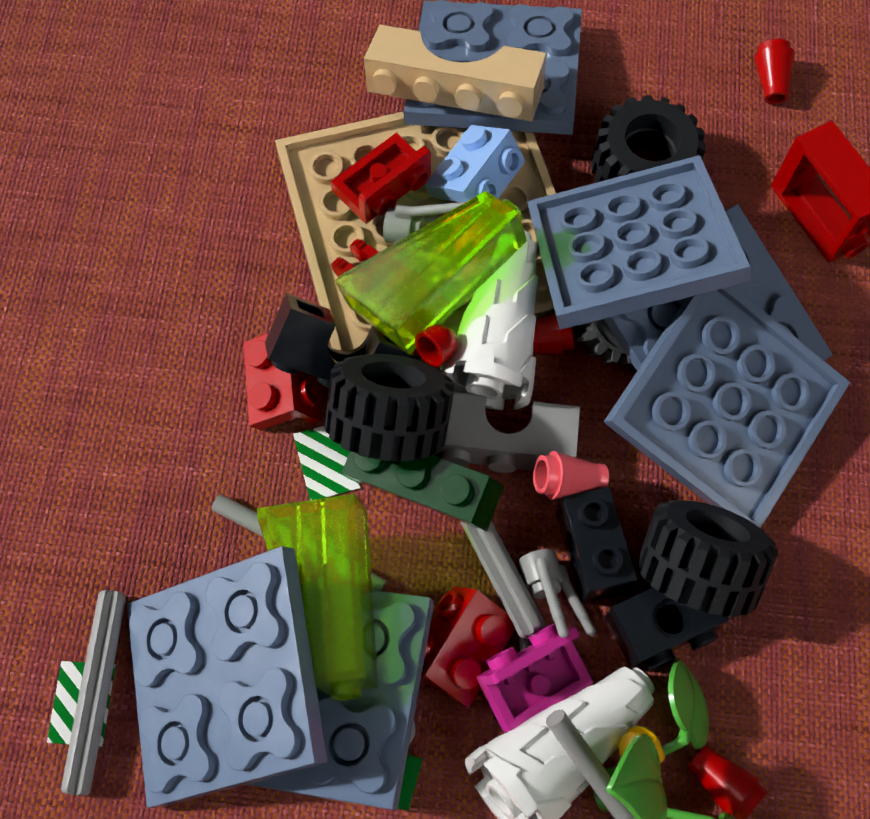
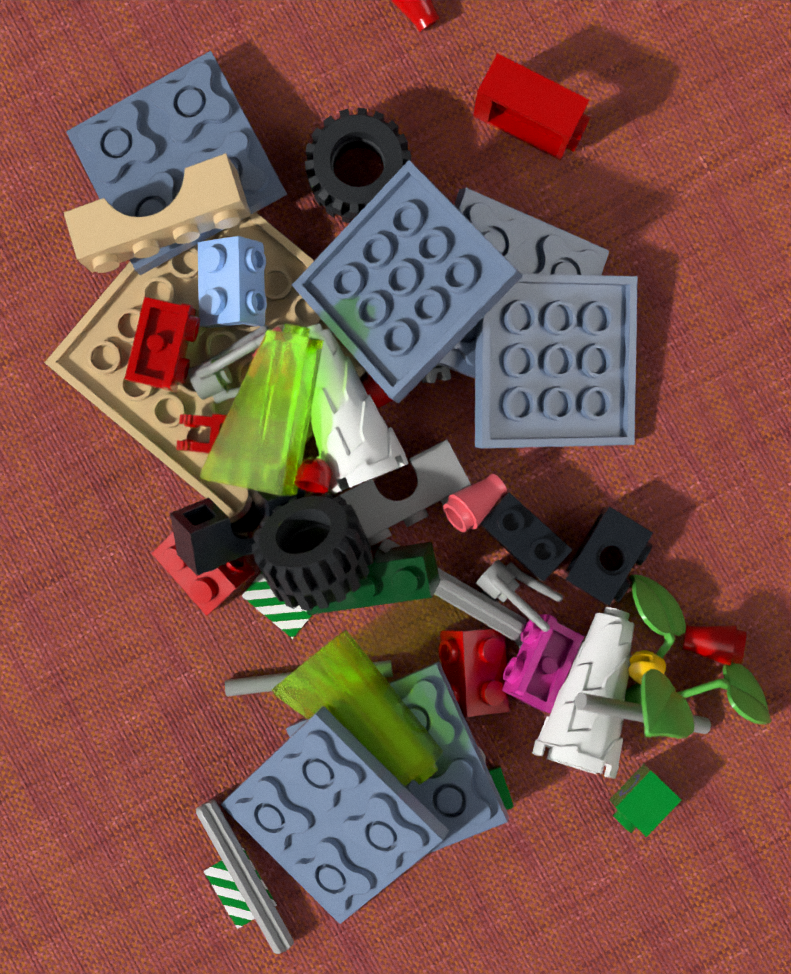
camera: 30 degrees left, 20 degrees up
(707, 558) = (611, 500): black tyre -> none

